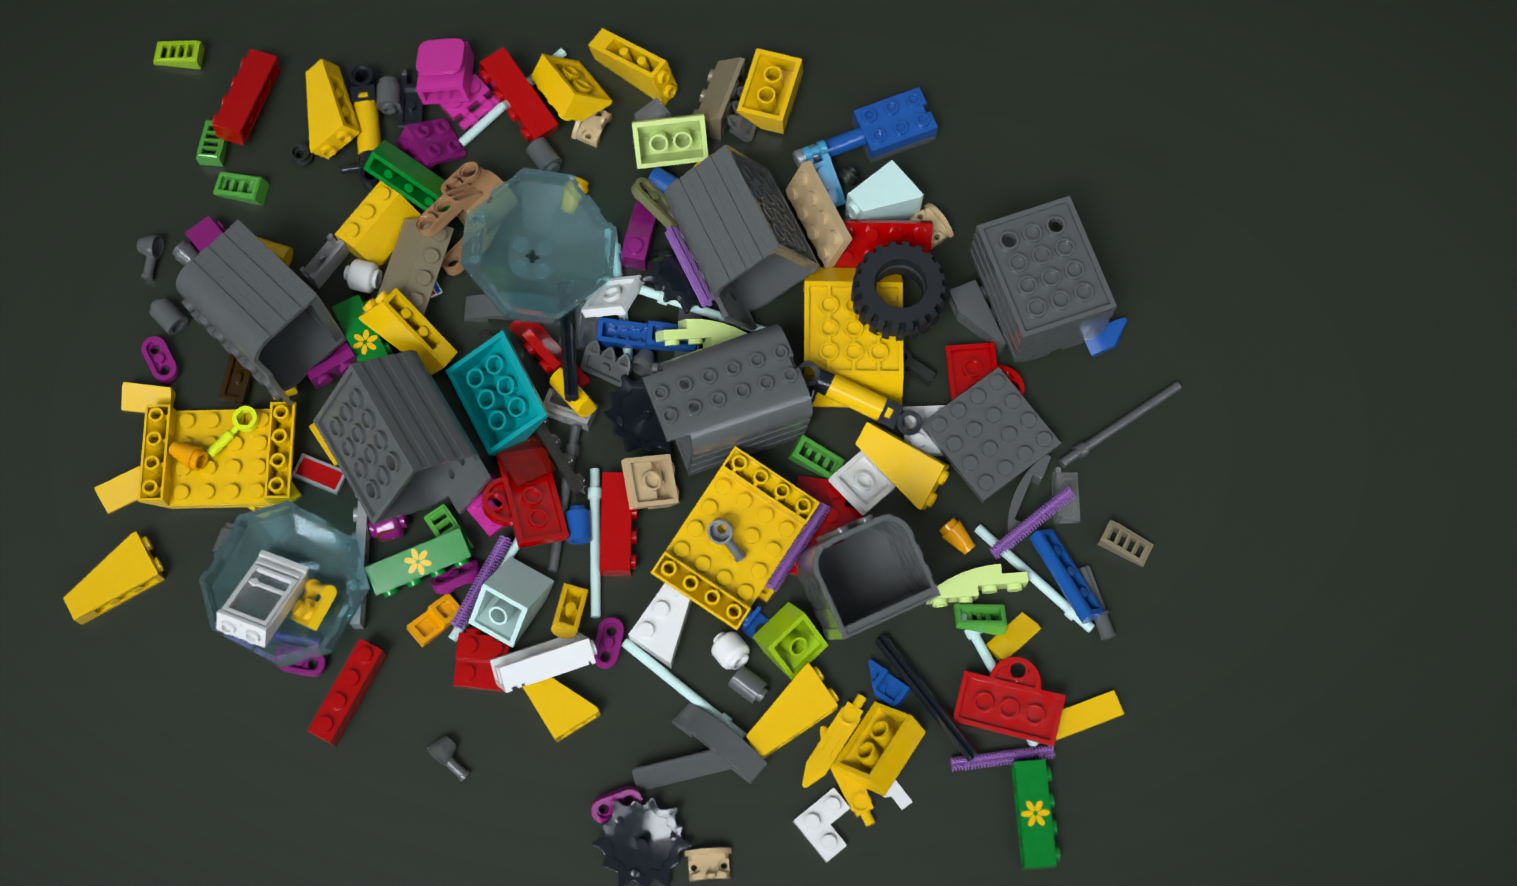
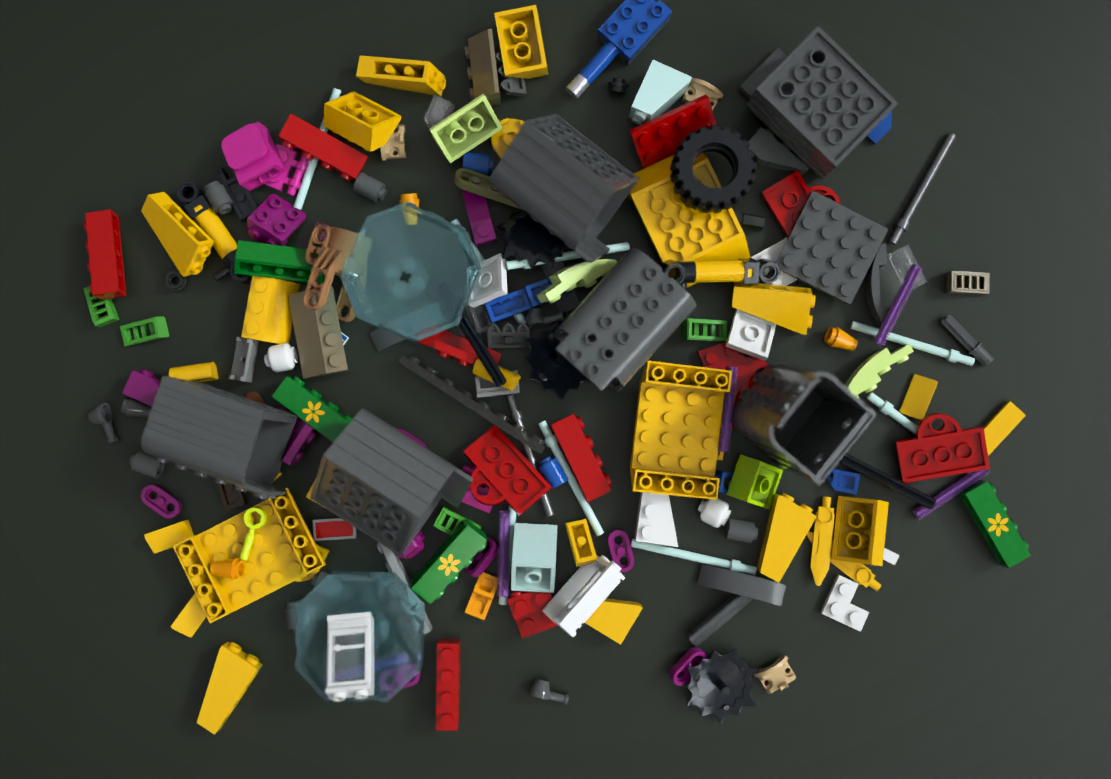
camera: 30 degrees left, 15 degrees up
(192, 62) = (45, 238): lime slope -> none
(307, 610) = (387, 644): yellow plate -> none
(407, 329) = (342, 387): yellow slope -> none
(498, 394) = (440, 405): teal slope -> none
(526, 461) = (488, 444): clear red piece -> none
(650, 482) = (591, 414): tan plate -> none
(689, 266) = (532, 226): medium lavender axle -> none
(721, 536) = (670, 432): dark grey bar -> none
(818, 214) = (613, 132): tan plate -> none
(825, 171) = (600, 97): dark azure plate -> none
(989, 611) = (900, 385): bright green slope -> none
(1066, 575) = (938, 331): blue brick -> none

